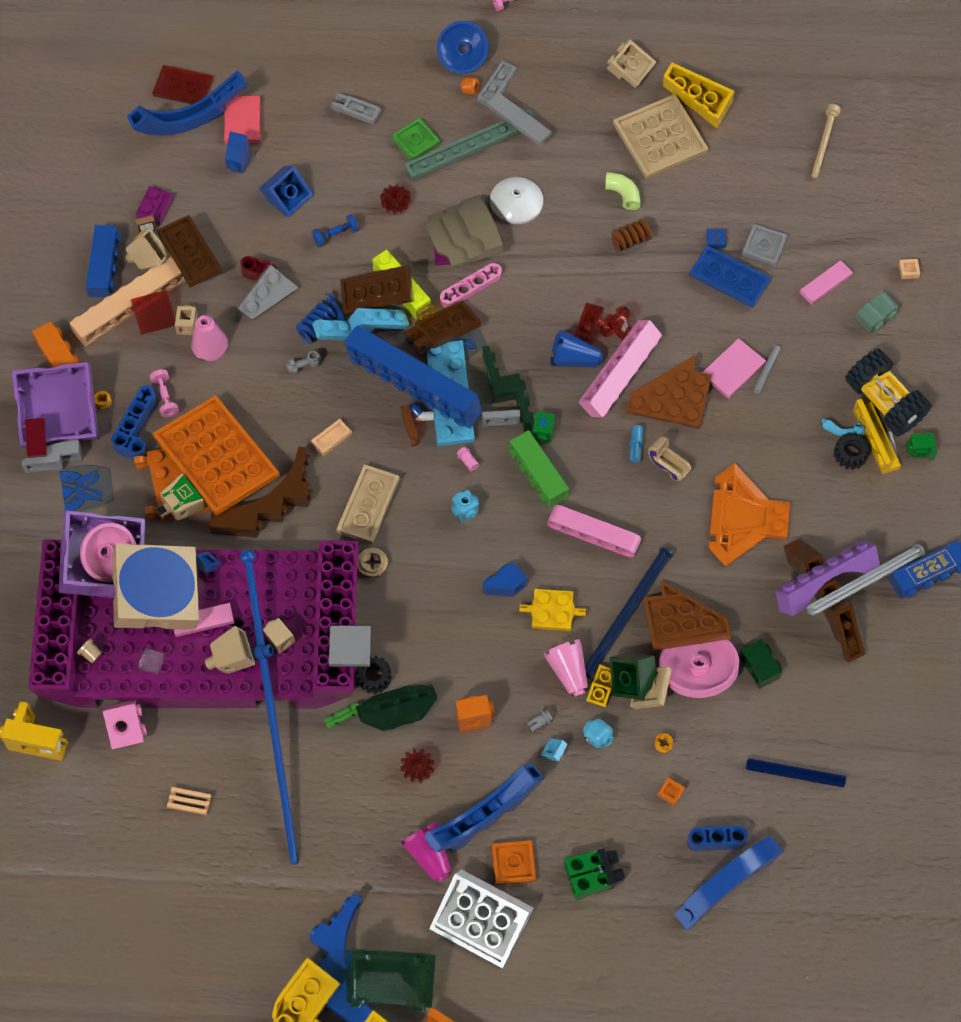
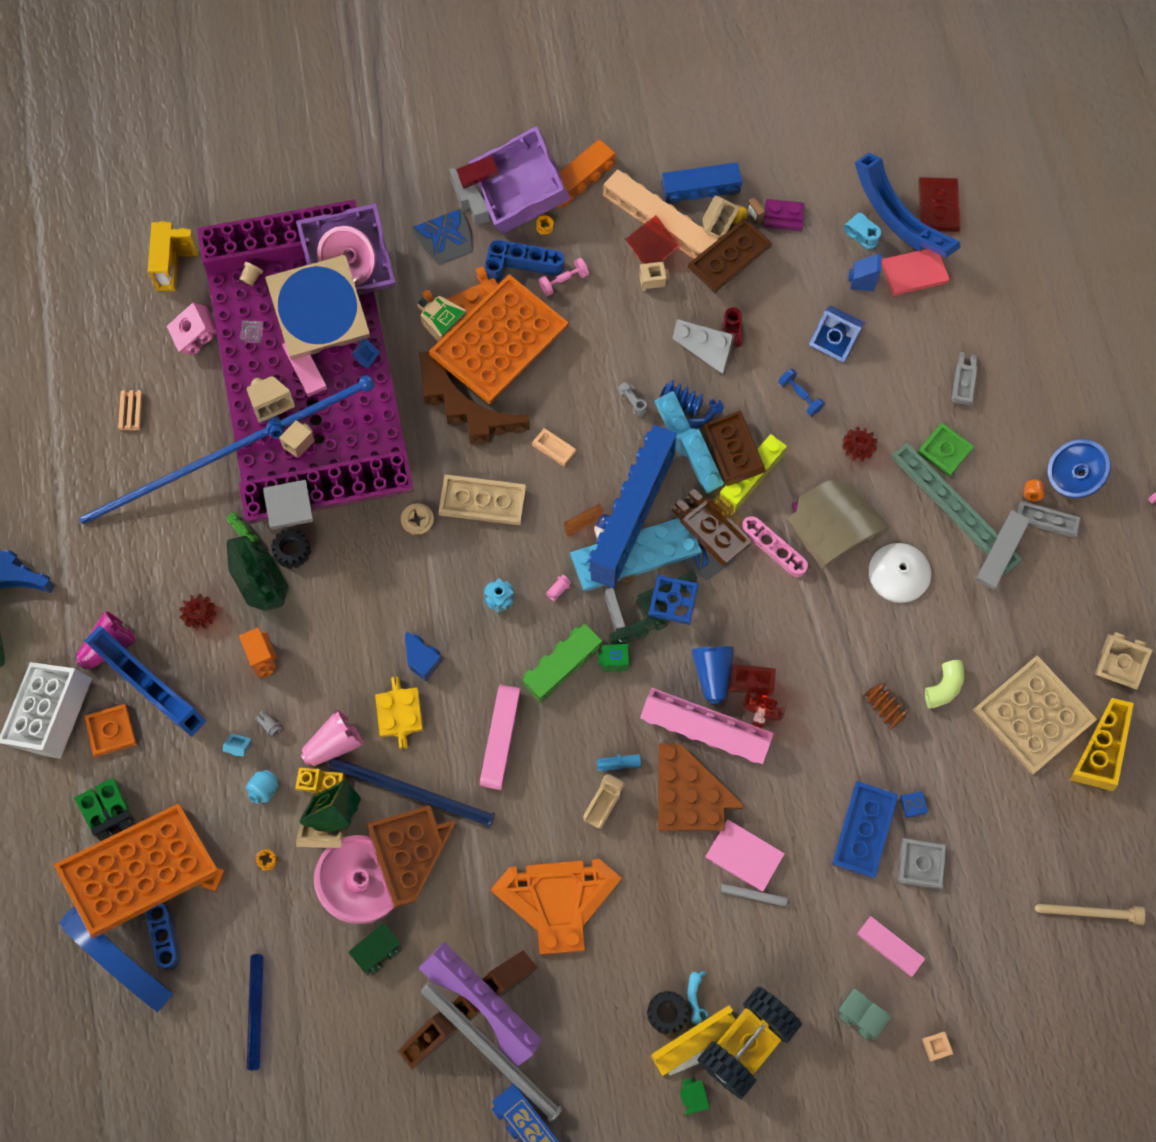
camera: 75 degrees right, 5 degrees up
(191, 147) = (863, 229): none -> medium azure piece
(208, 339) = (634, 302): bright pink cone -> none
(499, 377) = (684, 601): none -> blue piece
(657, 846) = (135, 870): none -> orange plate

